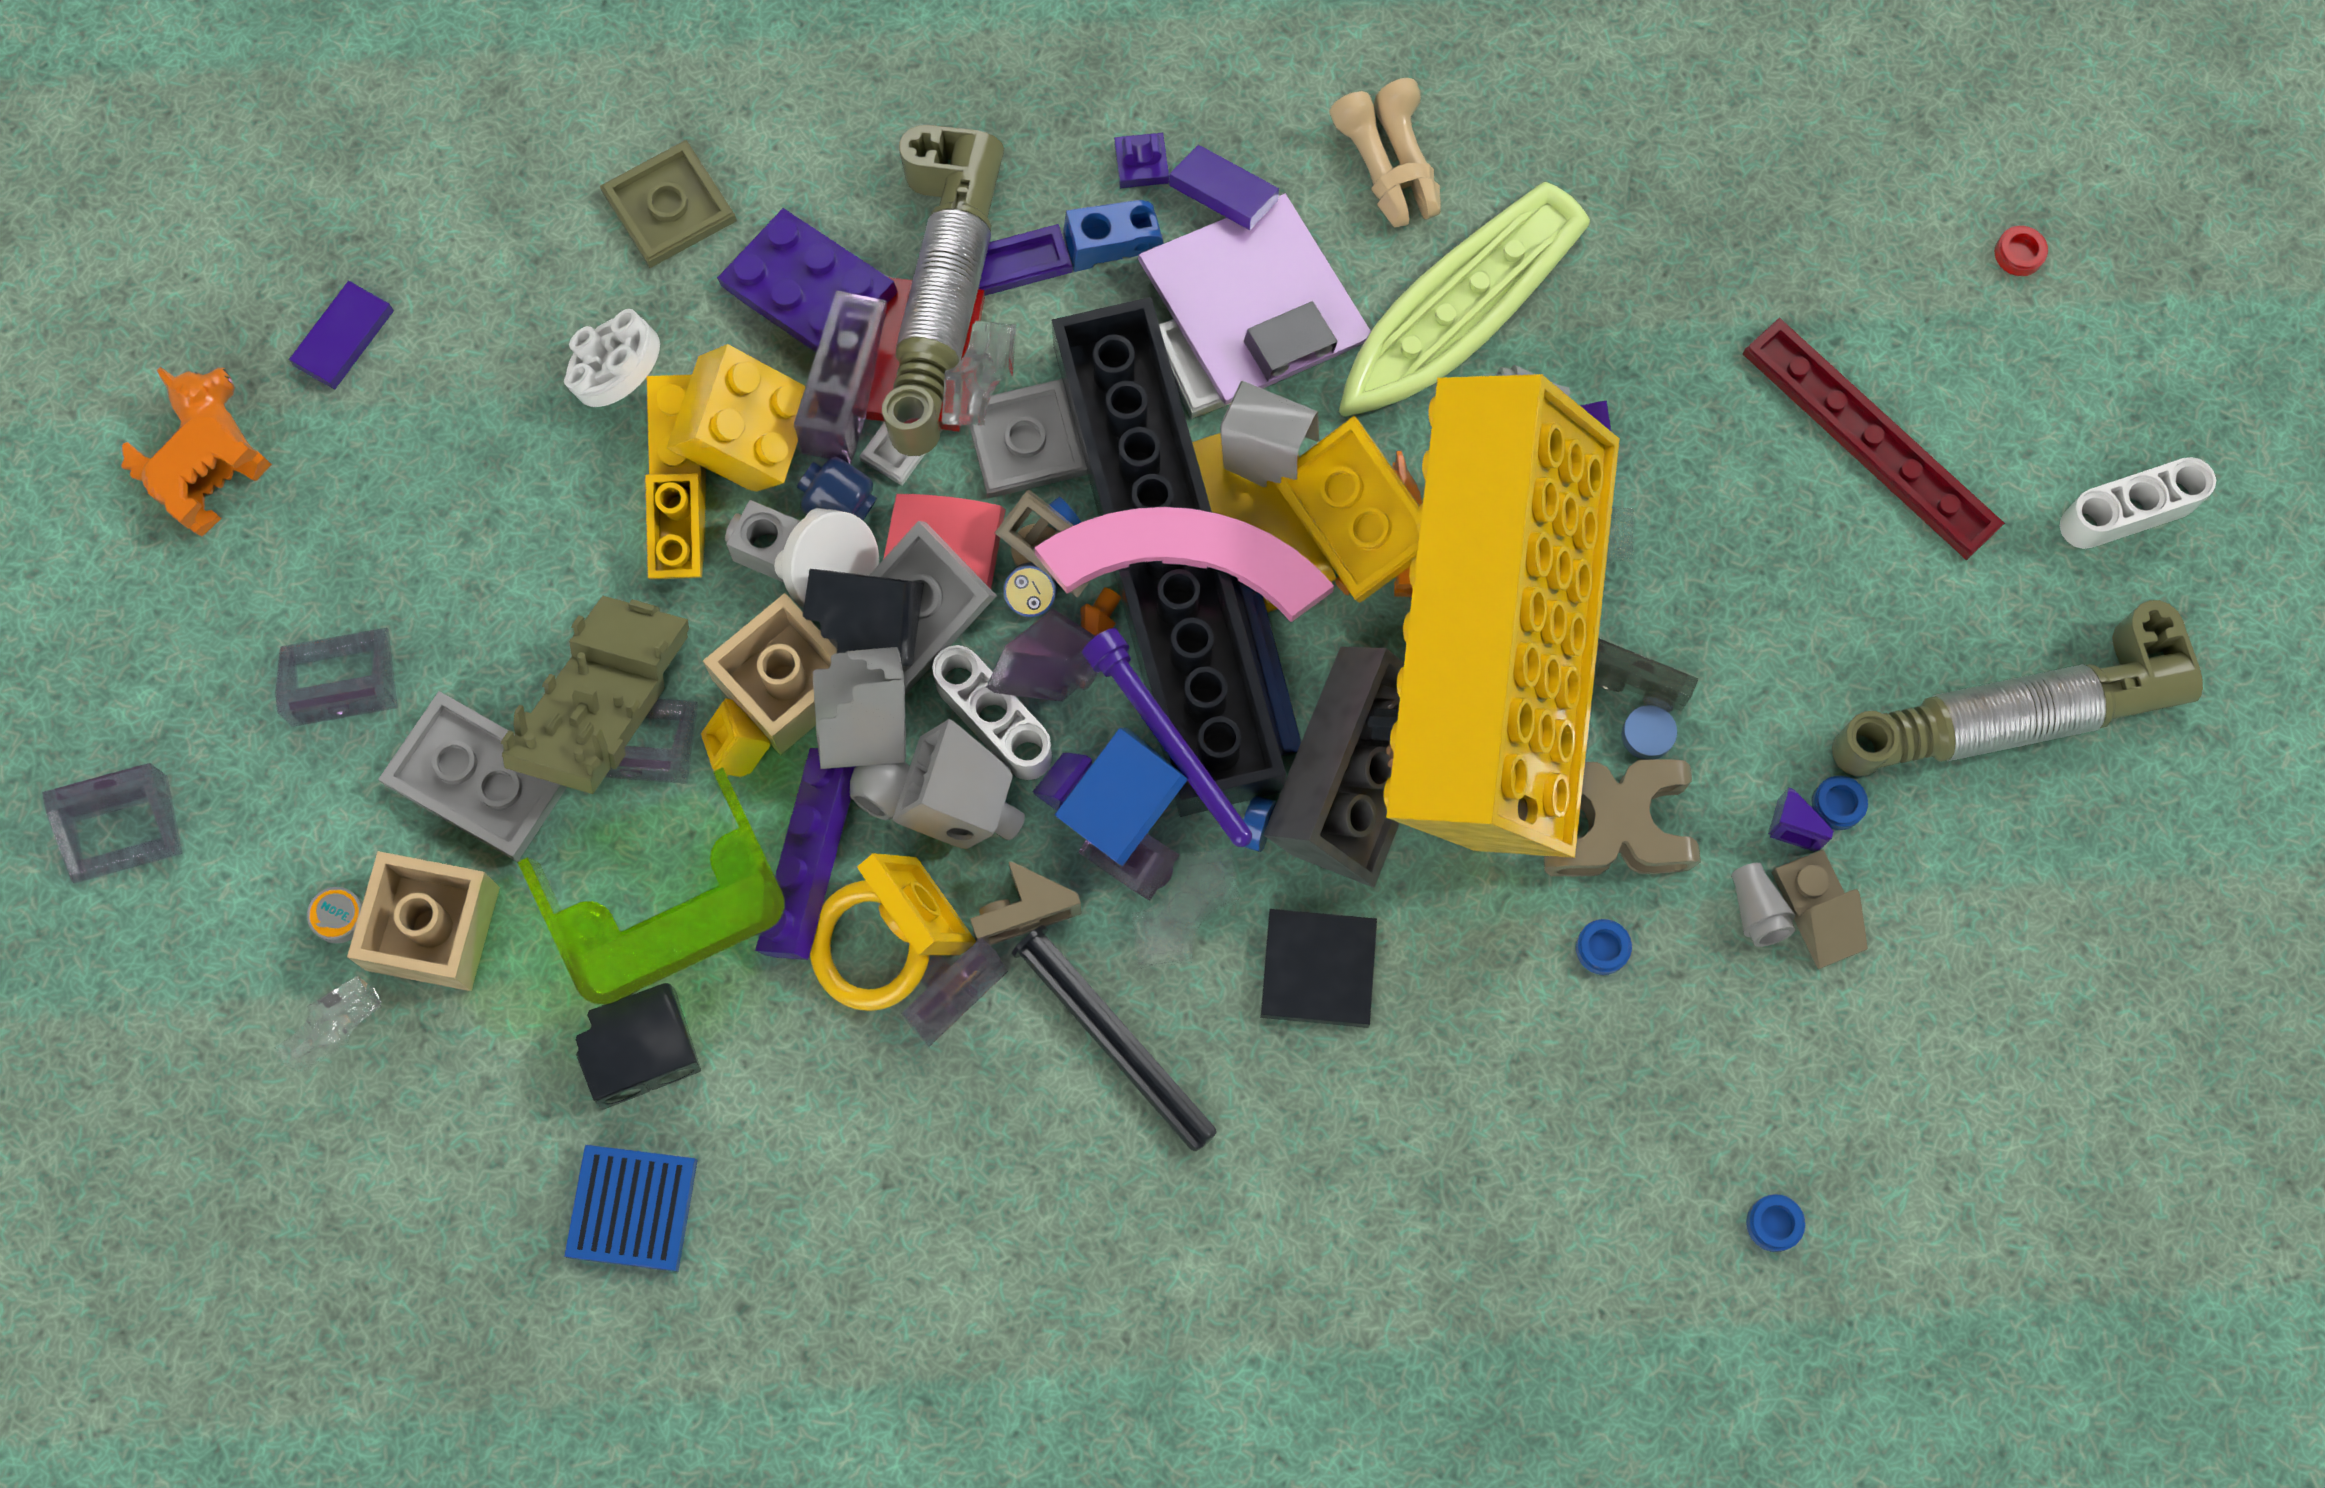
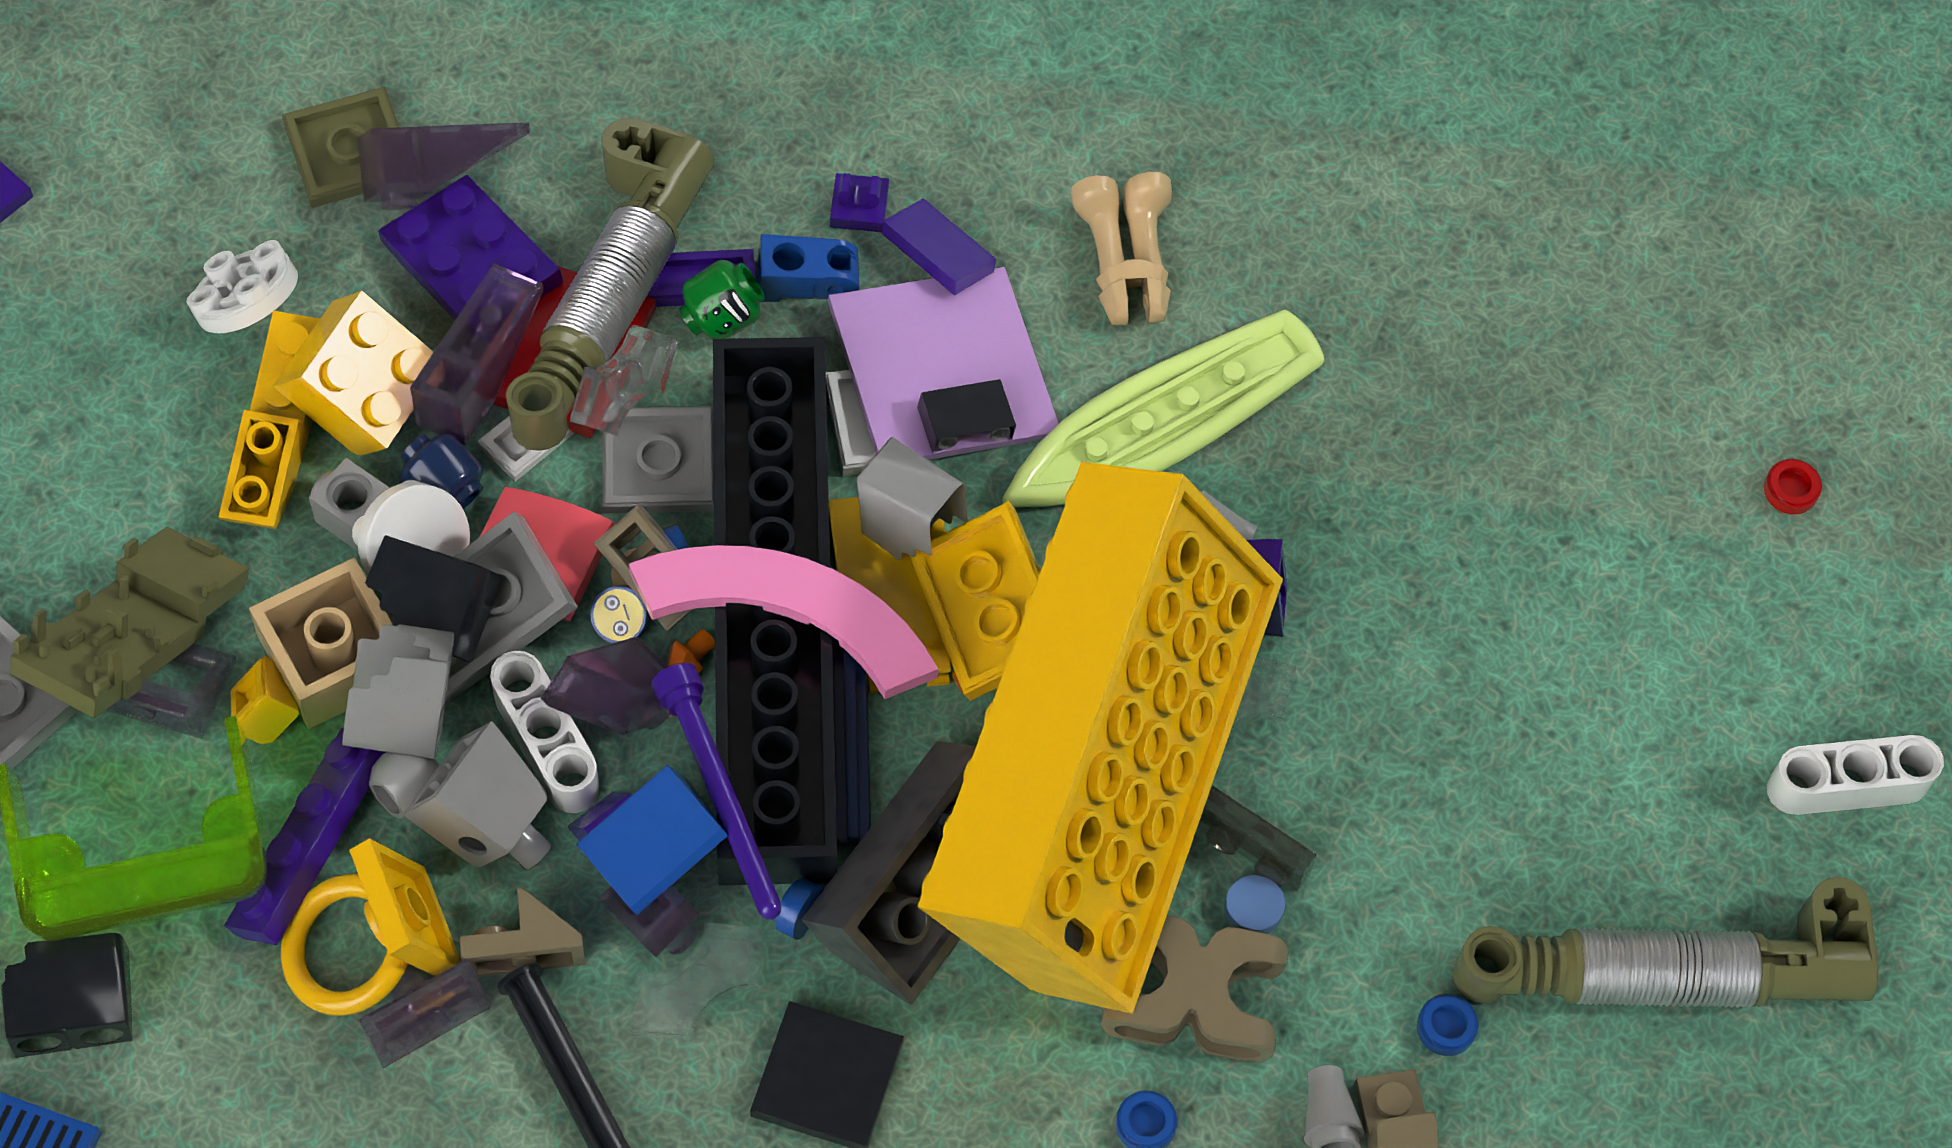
camera: 10 degrees right, 10 degrees down
(740, 205) = (413, 161): none -> clear purple slope
(1045, 279) = (721, 300): none -> green head
(1798, 823) = (1393, 1035): dark purple slope -> none
(1873, 439) = (1581, 650): dark red tile -> none

